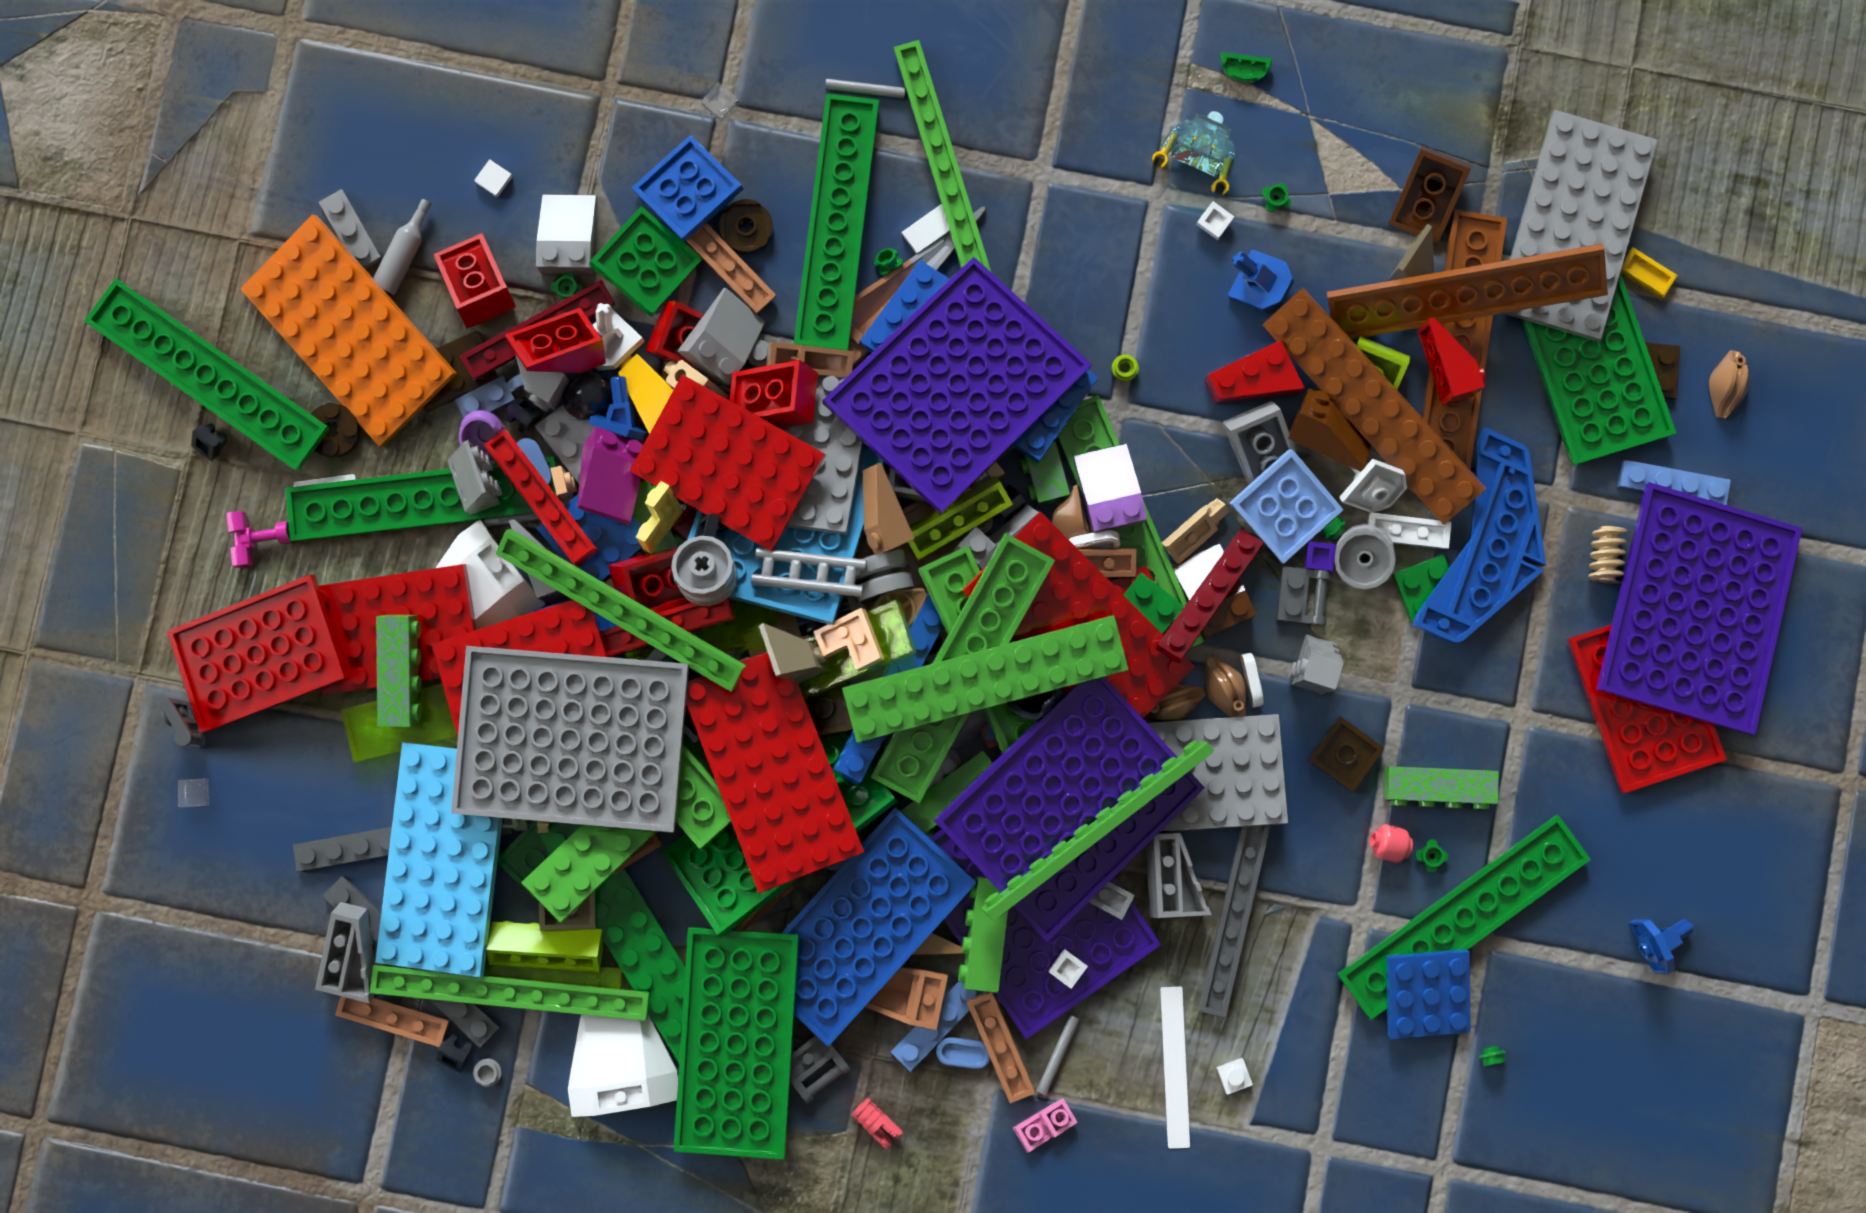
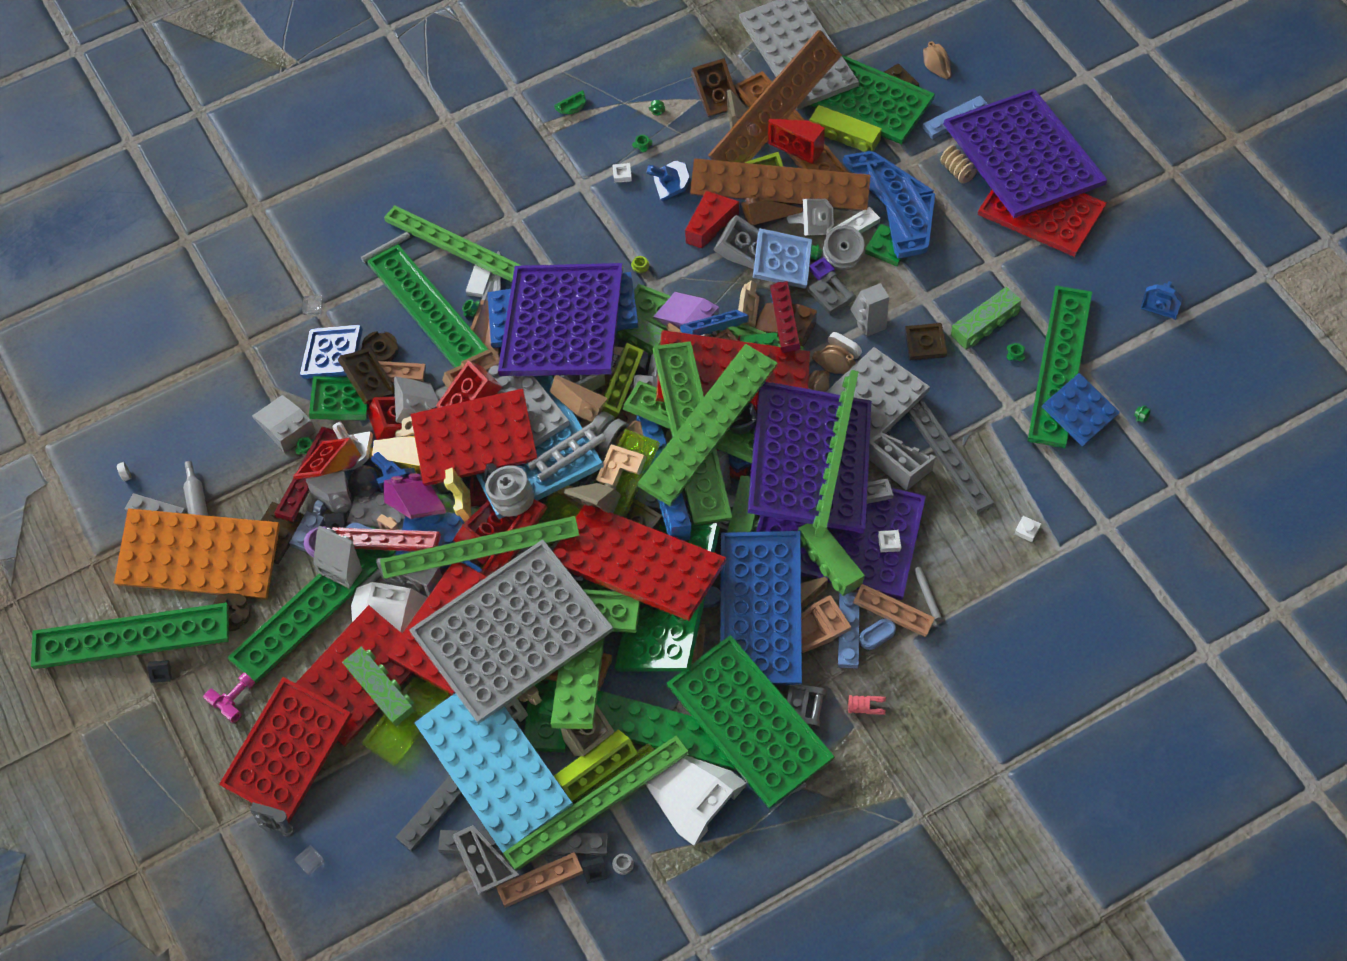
camera: 35 degrees left, 25 degrees down
(352, 152) = (123, 471): none -> white tile
(474, 281) = (251, 479): red slope -> none
(493, 178) = (217, 428): white tile -> none
(694, 262) = (366, 375): none -> dark brown plate
(1045, 1125) = (956, 632): bright pink slope -> none
(1121, 538) = (714, 323): none -> blue plate
(1175, 1067) = (994, 551): white sticker -> none
(1203, 145) = (584, 145): clear light blue torso -> none
(1338, 161) = (657, 107): none -> green plate
(1391, 843) = (990, 360): coral head -> none
(1525, 388) = (847, 129): none -> lime brick
(1647, 273) = (853, 47): yellow tile -> none

